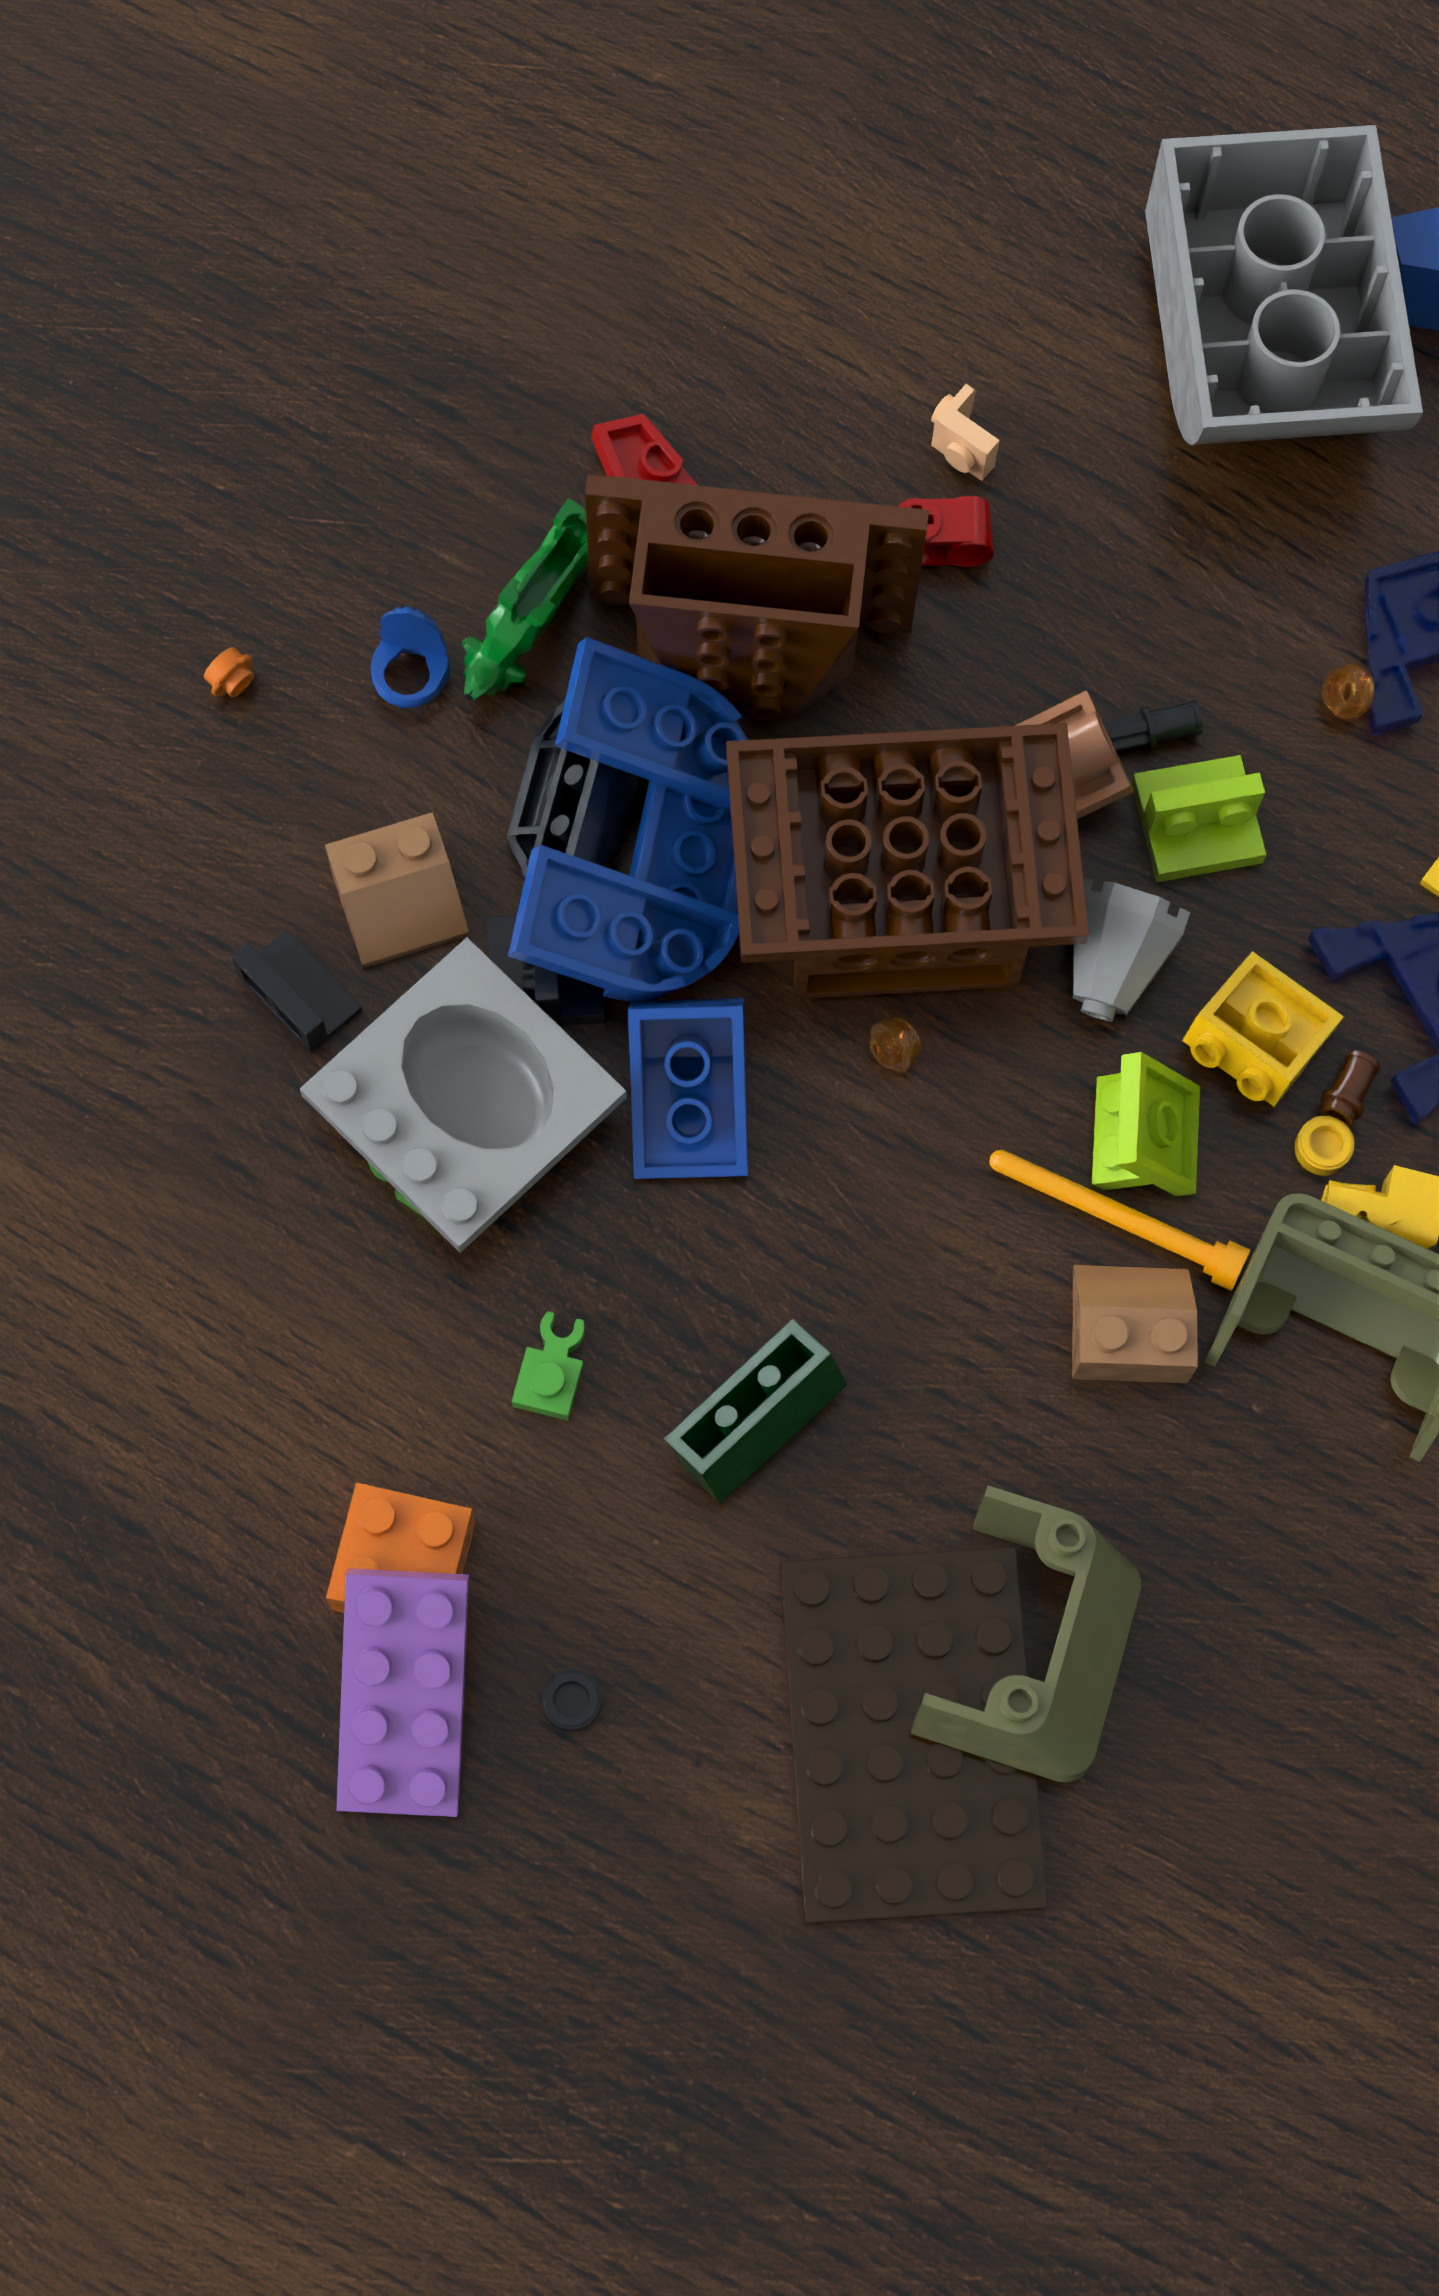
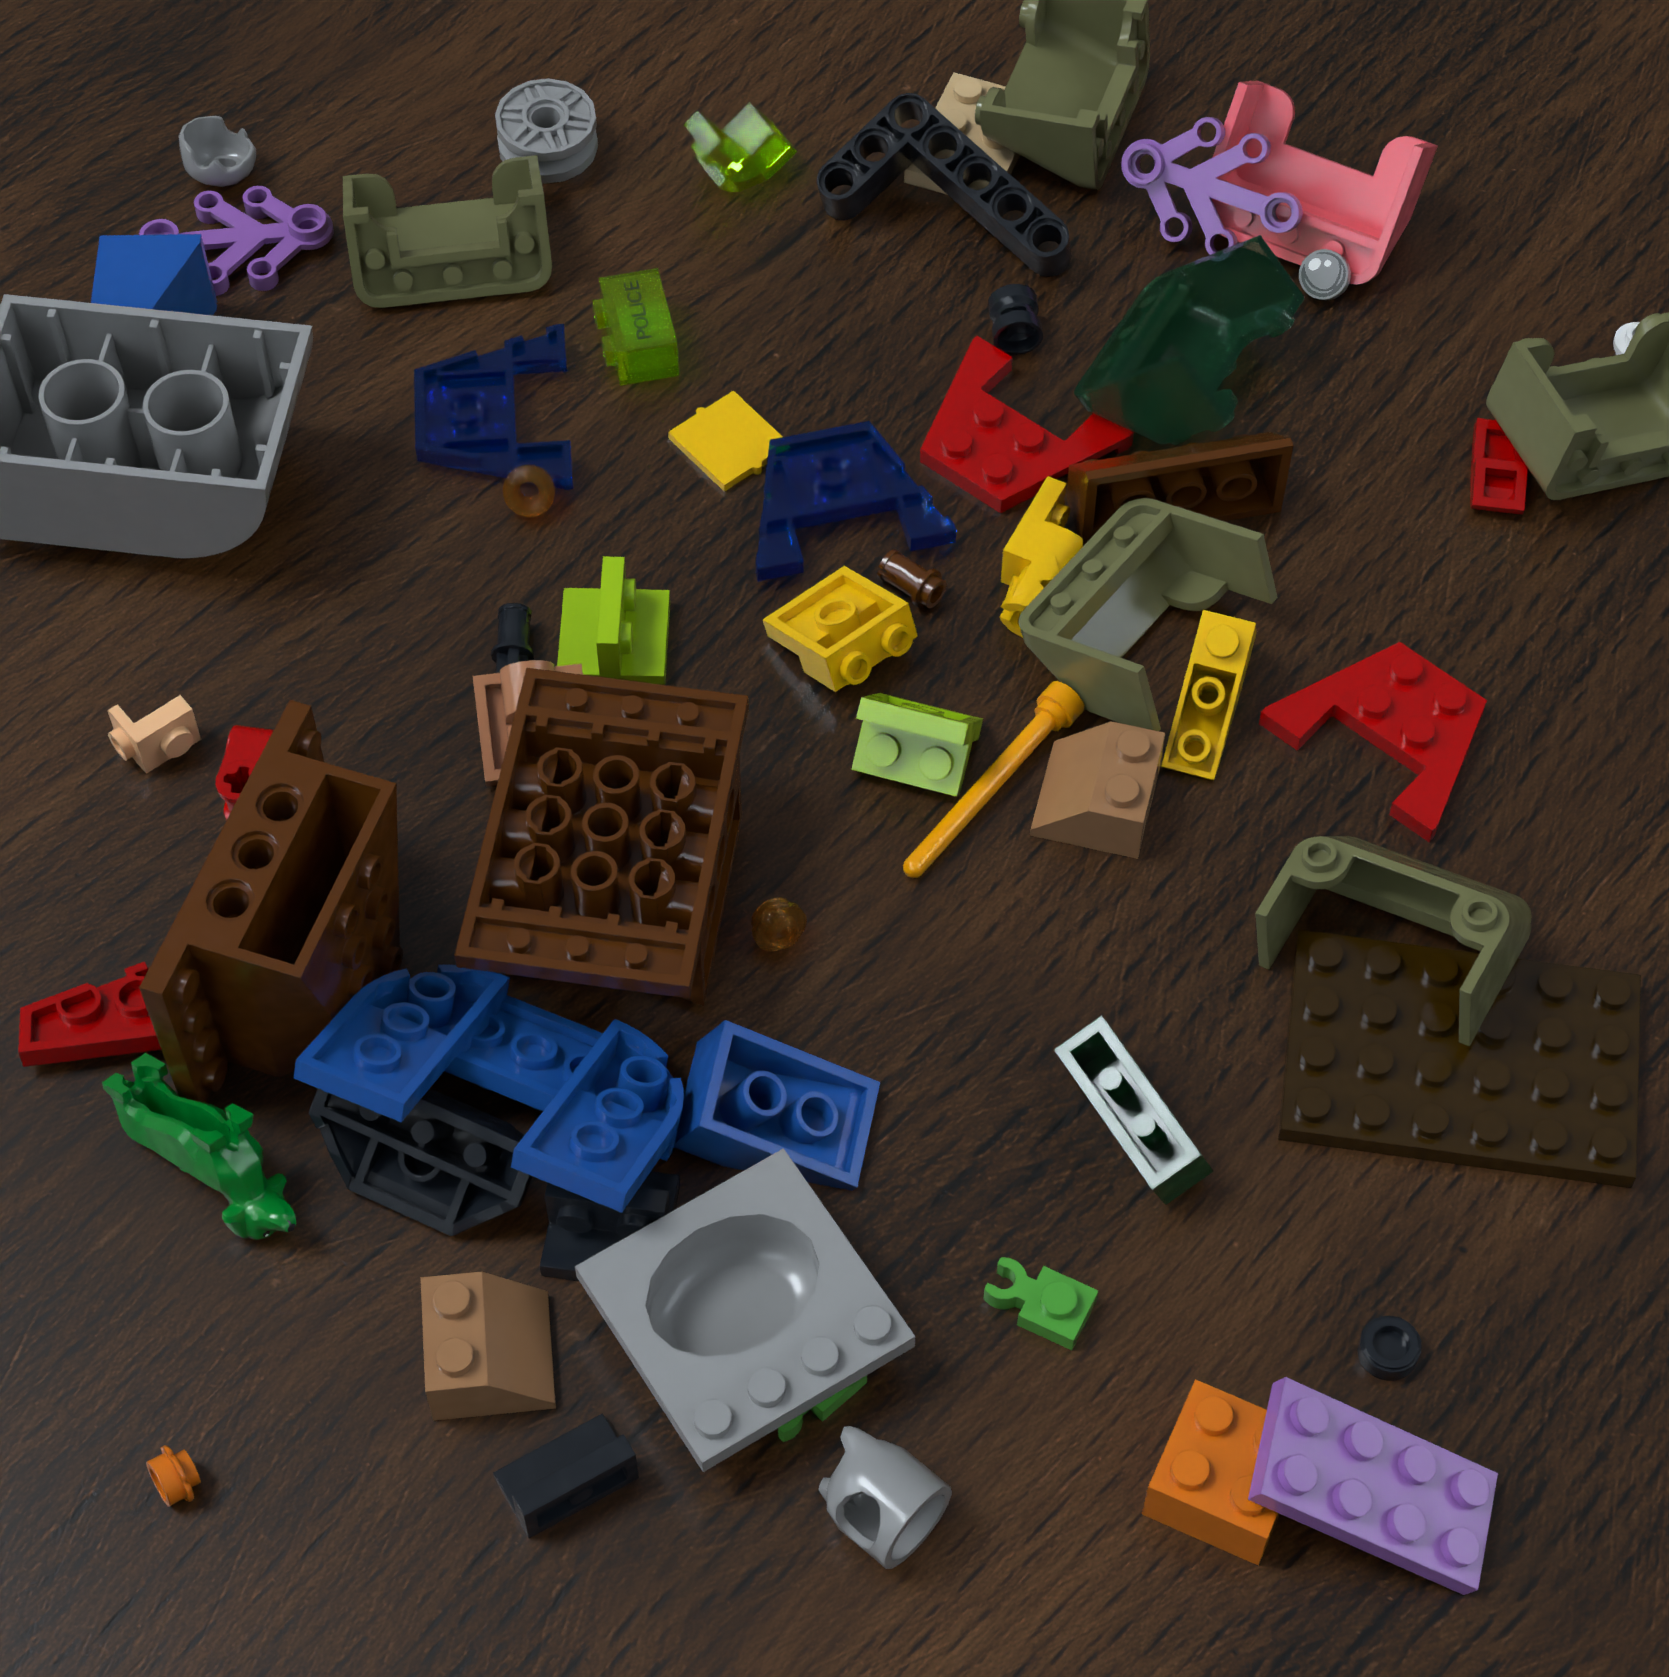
camera: 75 degrees left, 15 degrees down
(312, 1257) = (883, 1497): none -> light grey piece
(410, 632) = (203, 1262): blue piece -> none
(1124, 948) = (770, 723): light grey cone -> none
(1284, 1414) = (1209, 694): none -> yellow slope
(1324, 1145) = (959, 613): yellow tile -> none
(1325, 1626) = (1403, 710): none -> red wing

